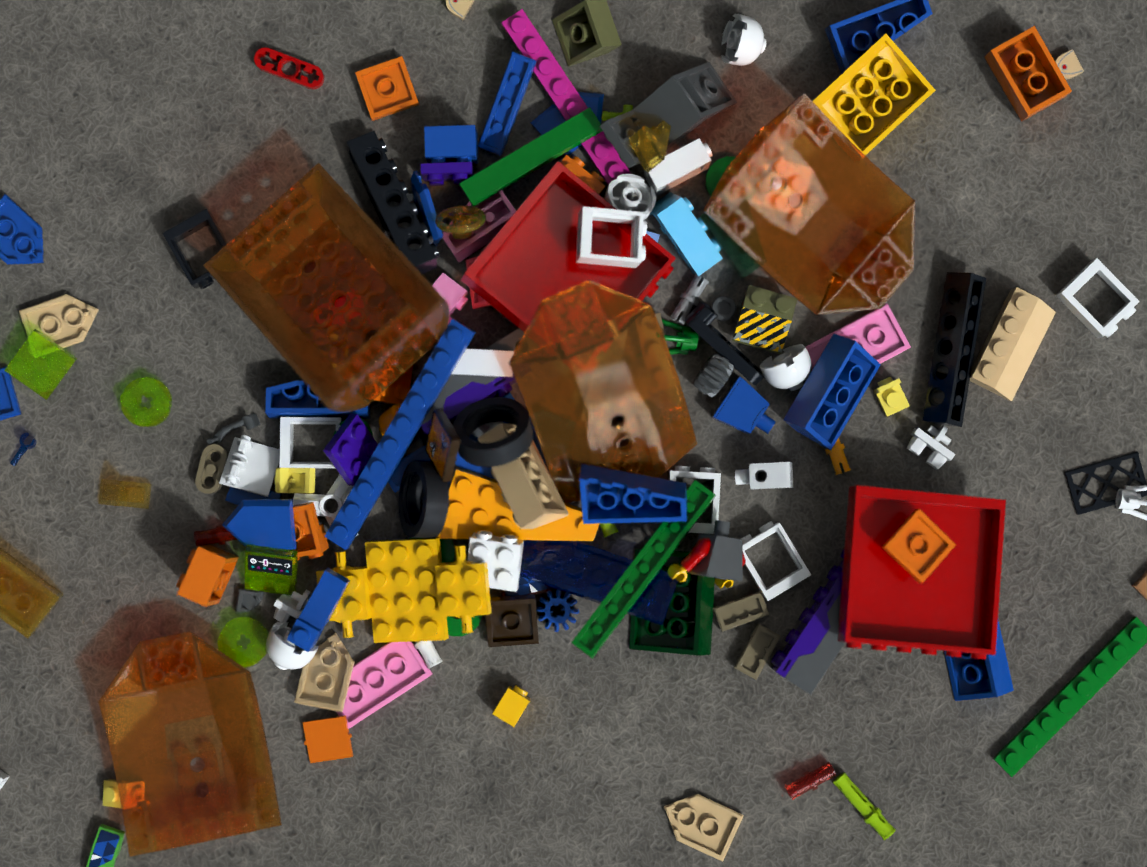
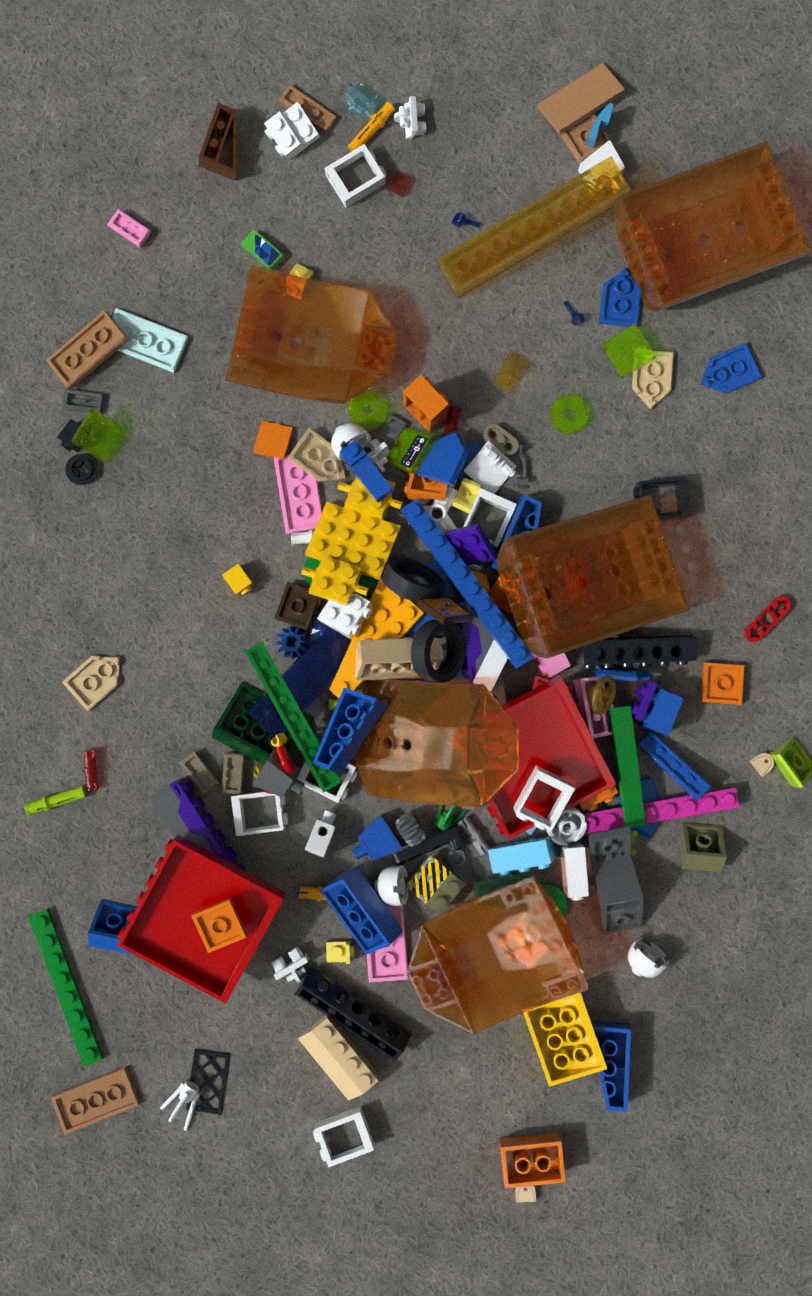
camera: 115 degrees right, 0 degrees up
(651, 144) = (598, 858): clear yellow slope -> none

